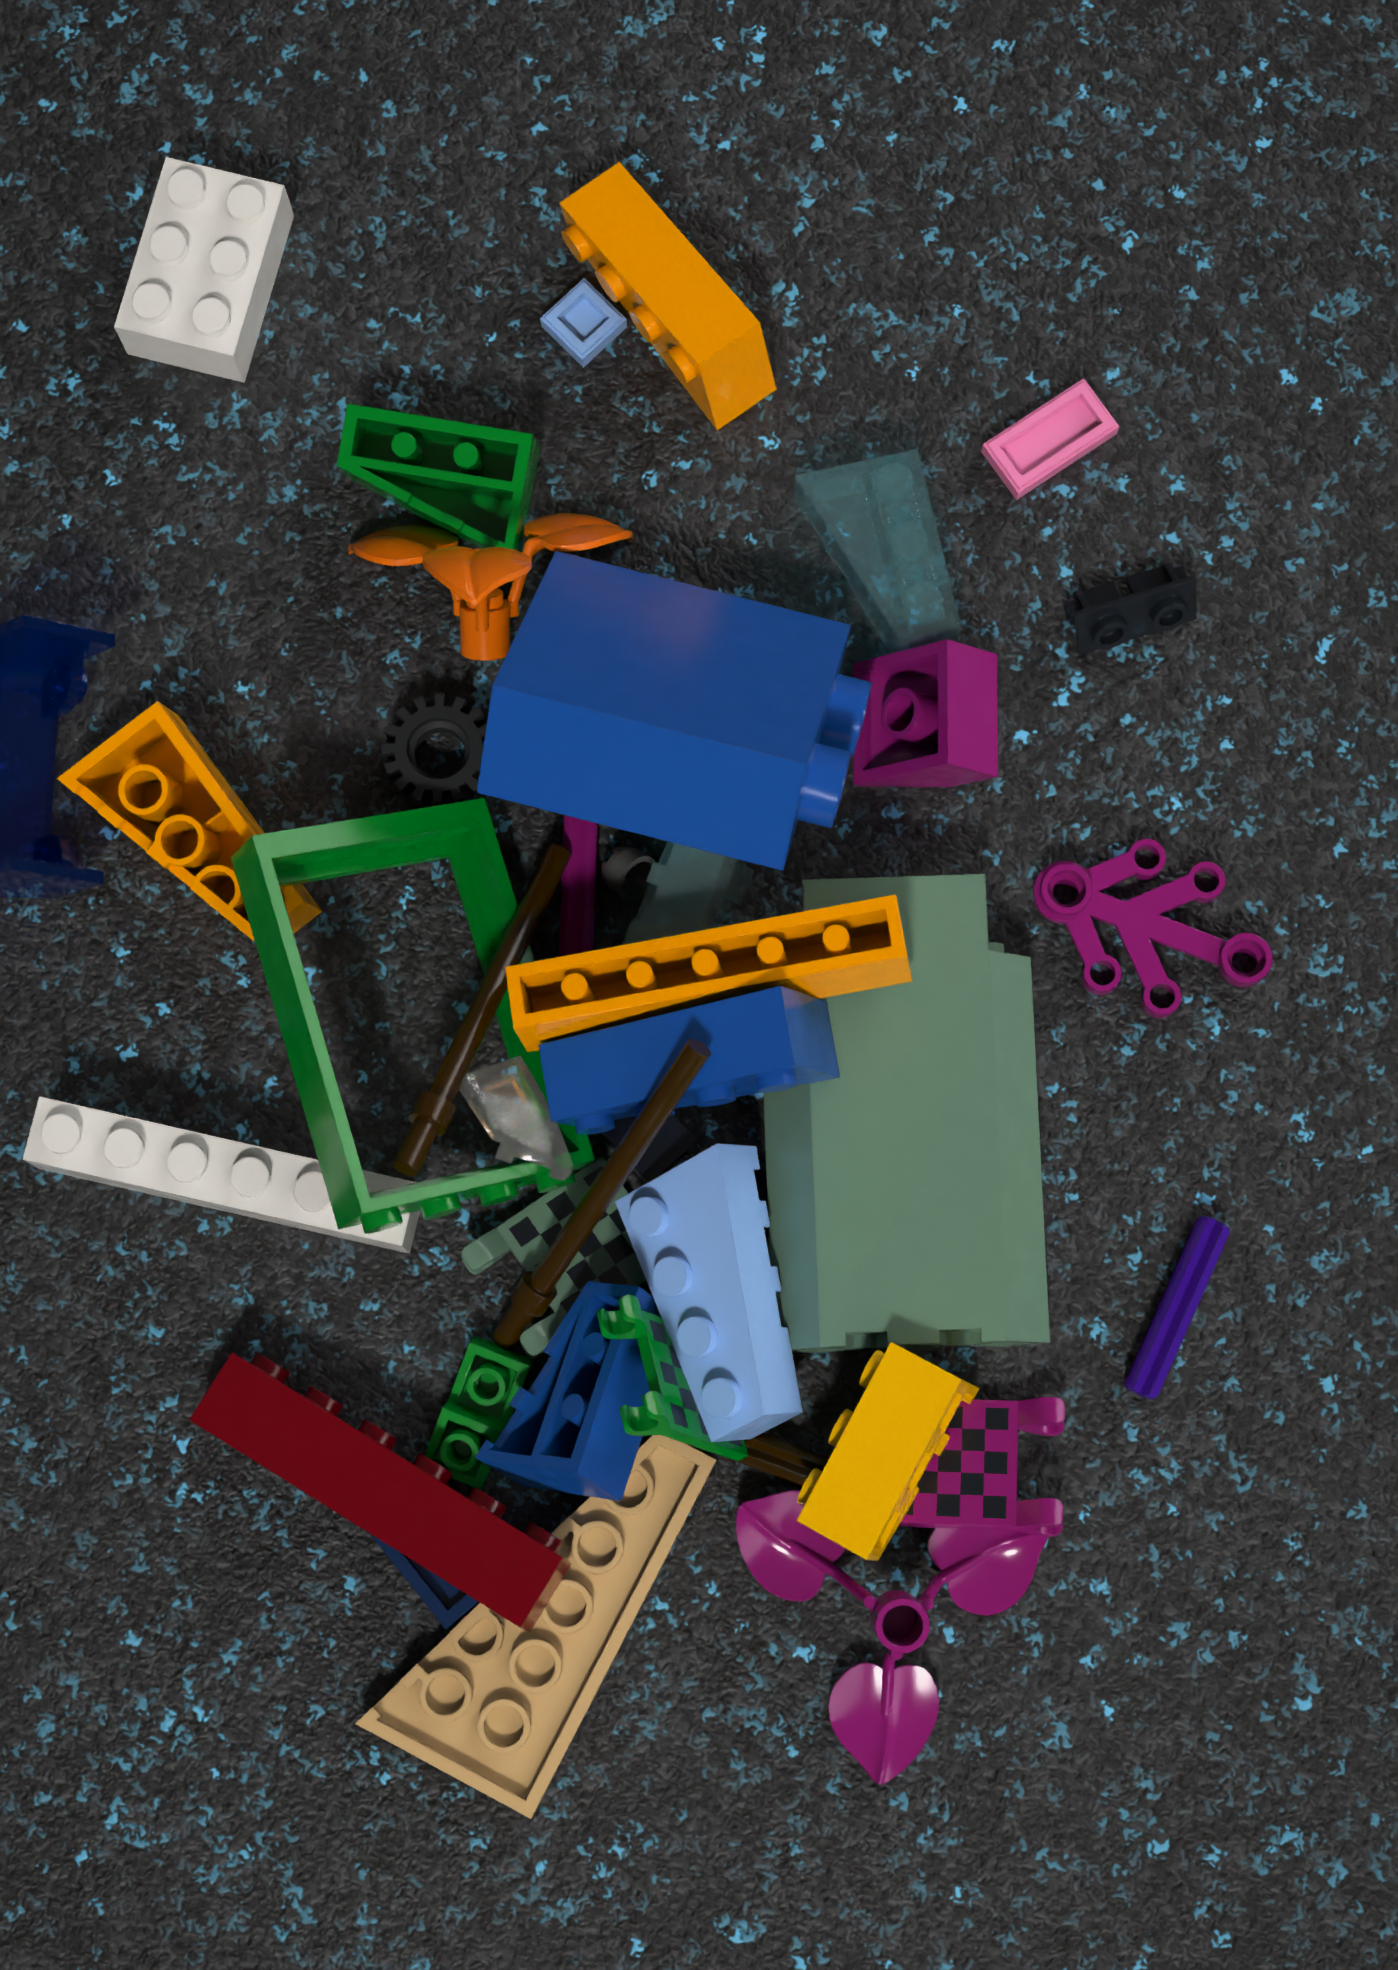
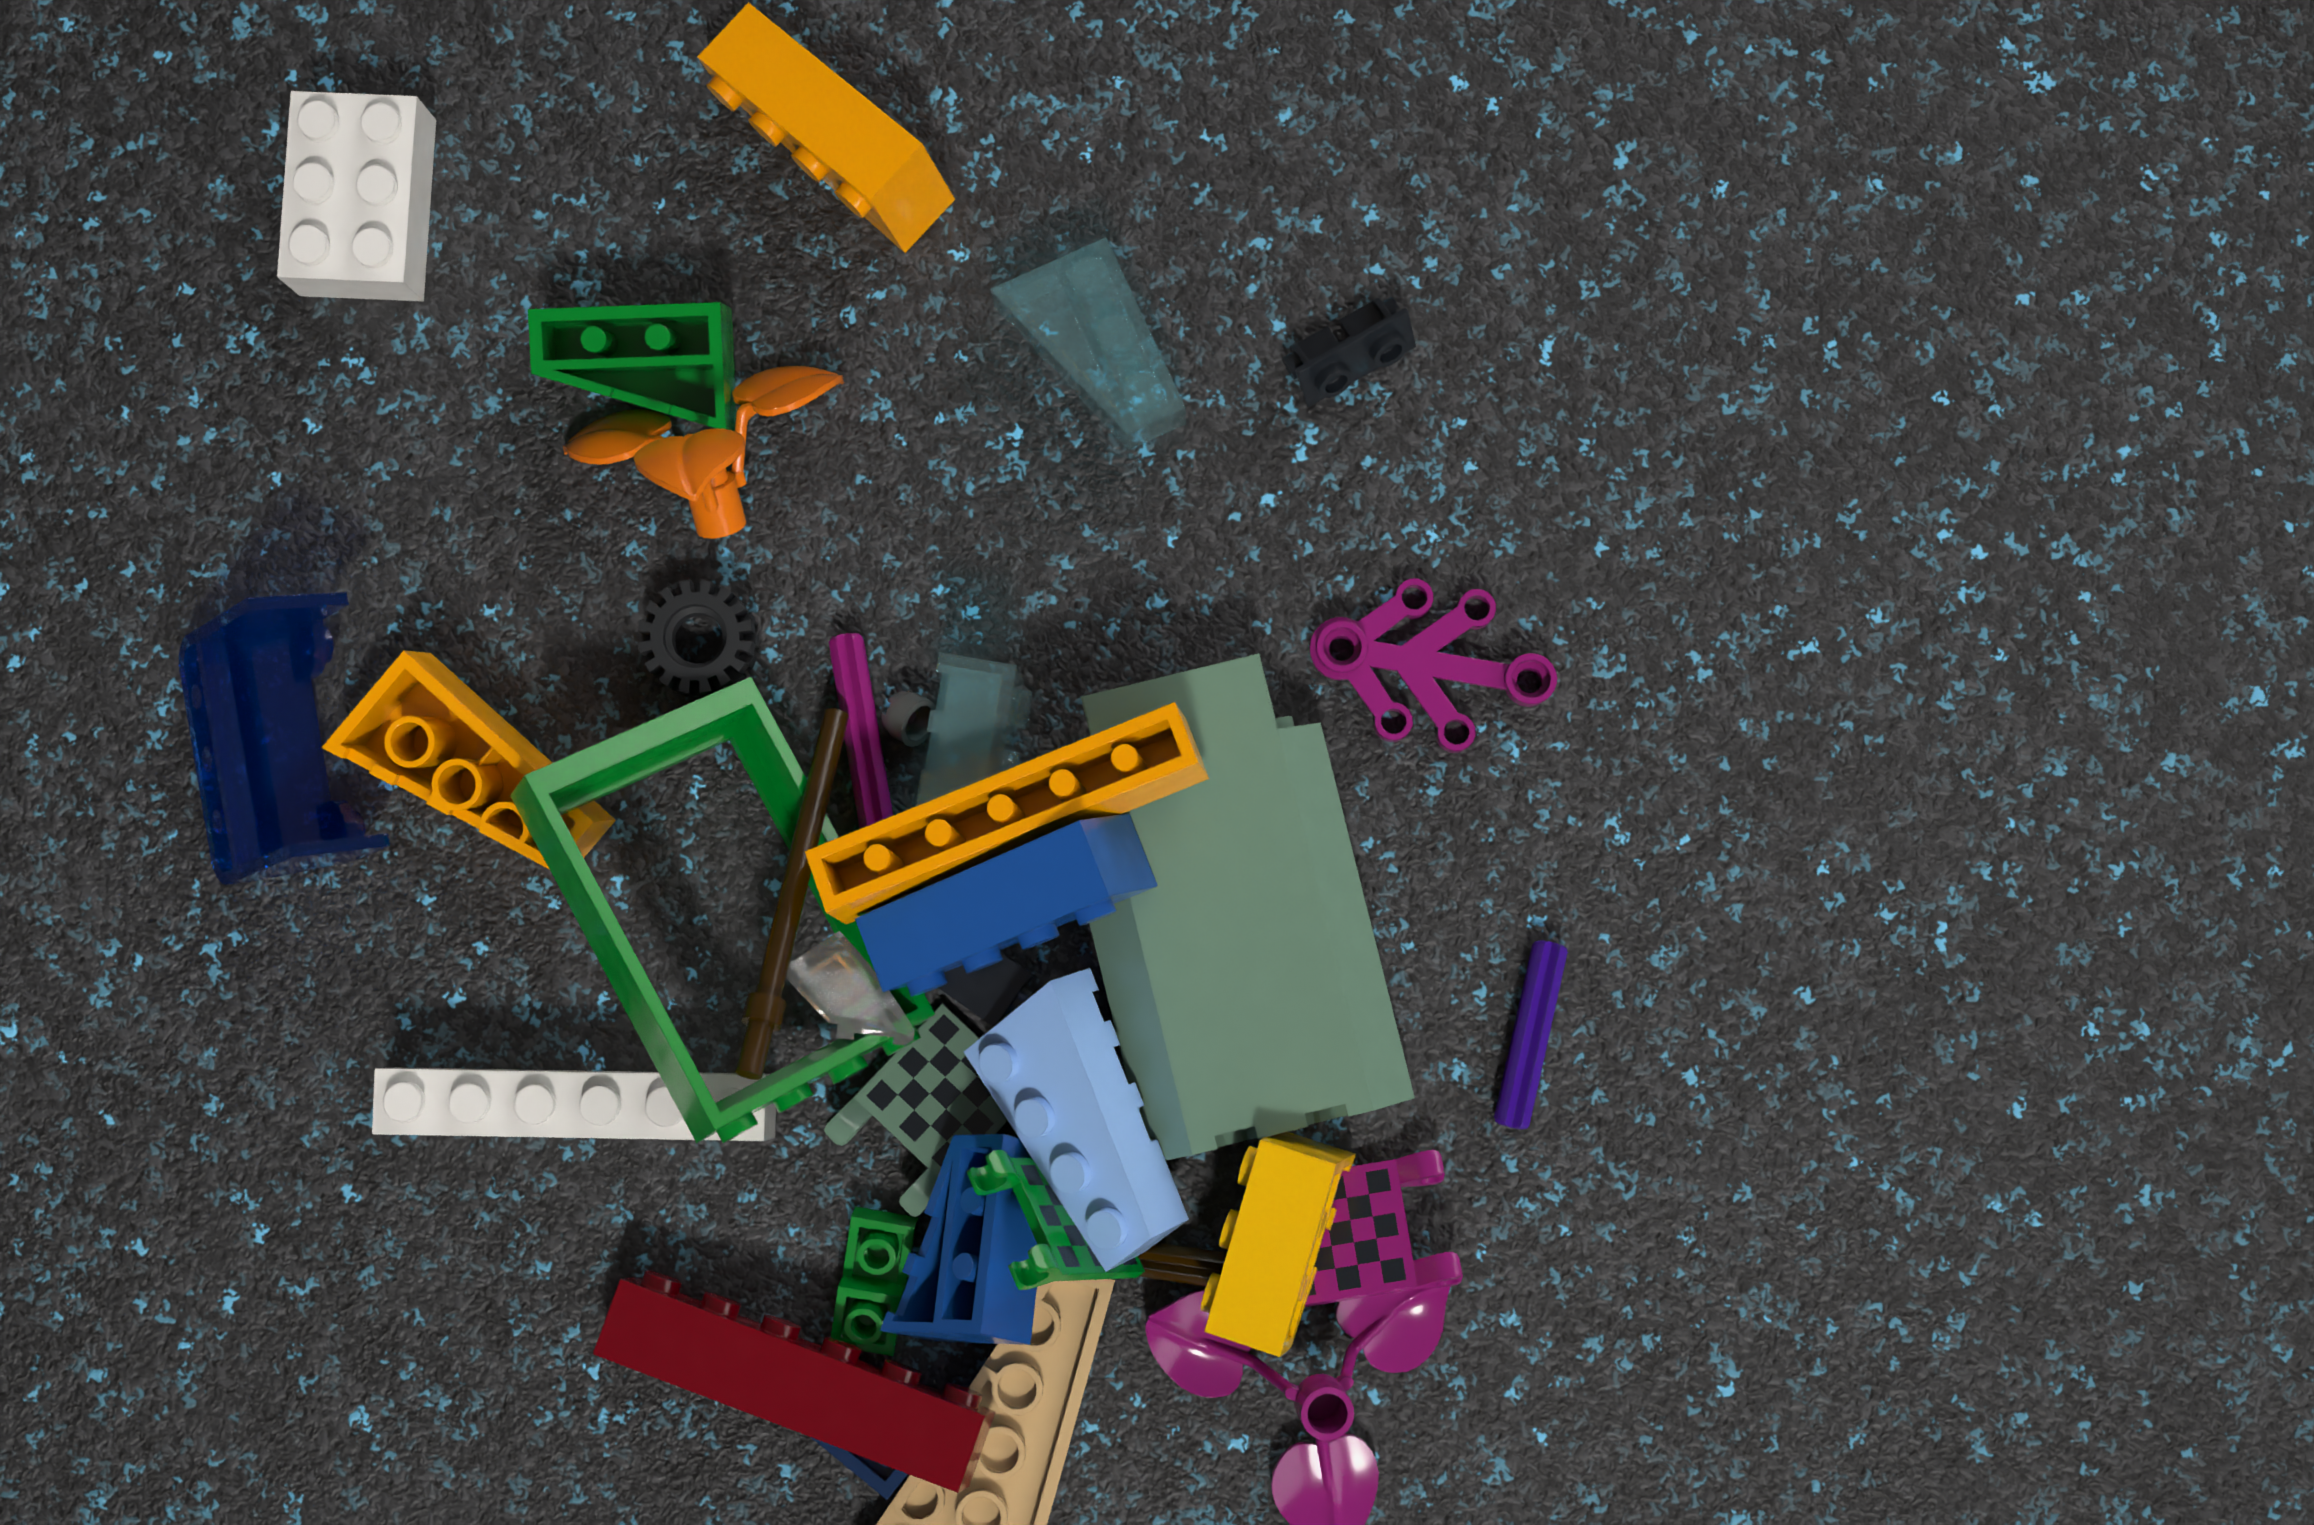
camera: 10 degrees left, 5 degrees up
(537, 1287) = (906, 1150): dark brown bar -> none
(583, 322) = (748, 171): light blue tile -> none
(673, 712) = (916, 559): blue brick -> none
(928, 717) = (1170, 503): magenta slope -> none
(1050, 439) = (1236, 195): bright pink tile -> none

